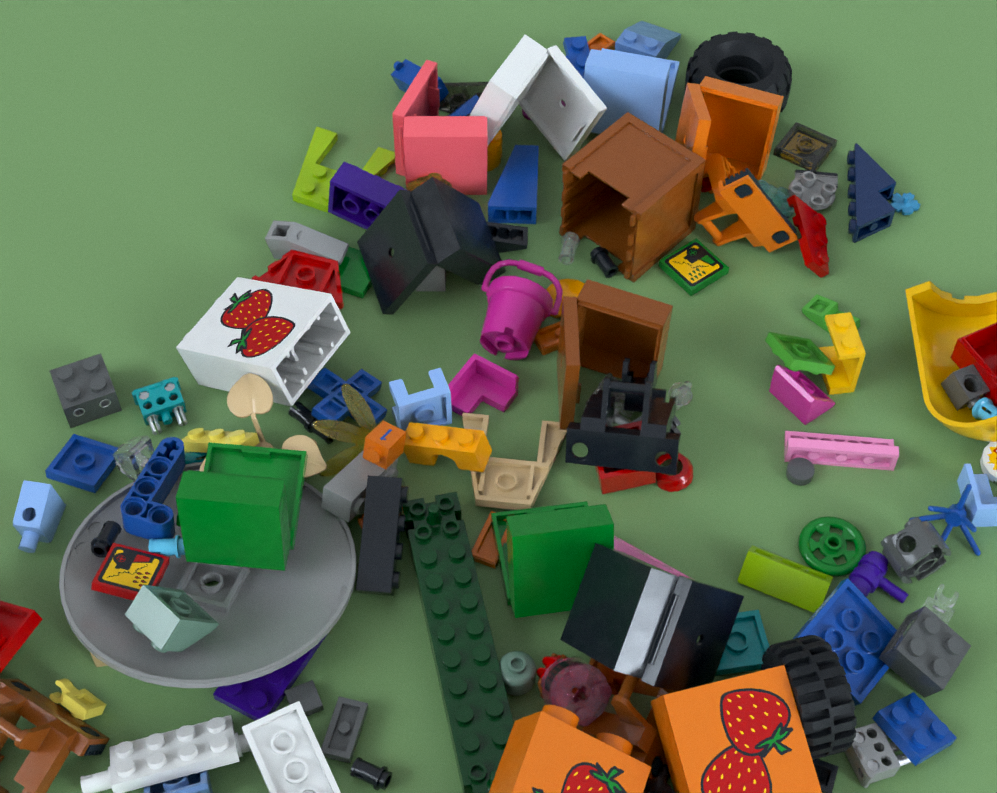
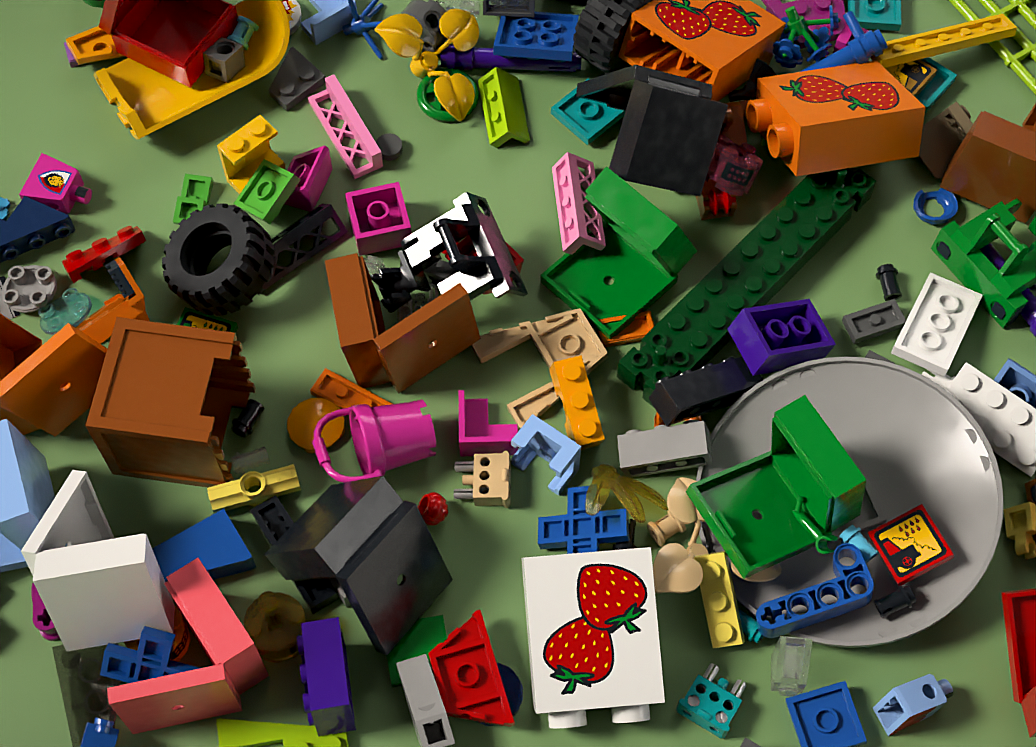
camera: 125 degrees left, 10 degrees up
(169, 618) = (924, 470): sand green slope -> none
(381, 621) = (780, 336): none -> dark purple brick
(384, 444) = (622, 441): orange brick -> none
(432, 360) = (496, 470): none -> tan piece
(442, 326) = (433, 508): none -> red piece
(518, 672) = (734, 228): sand green head -> none
(543, 235) = (236, 494): none -> light yellow piece
(721, 414) = (378, 218): none -> dark pink brick
(745, 349) = (294, 234): none -> black fence
(746, 284) = (197, 243): none -> black tyre
(889, 570) = (461, 28): none -> yellow plant
(900, 238) = (55, 185): none -> dark pink torso
(921, 442) = (295, 80): none -> dark grey wing

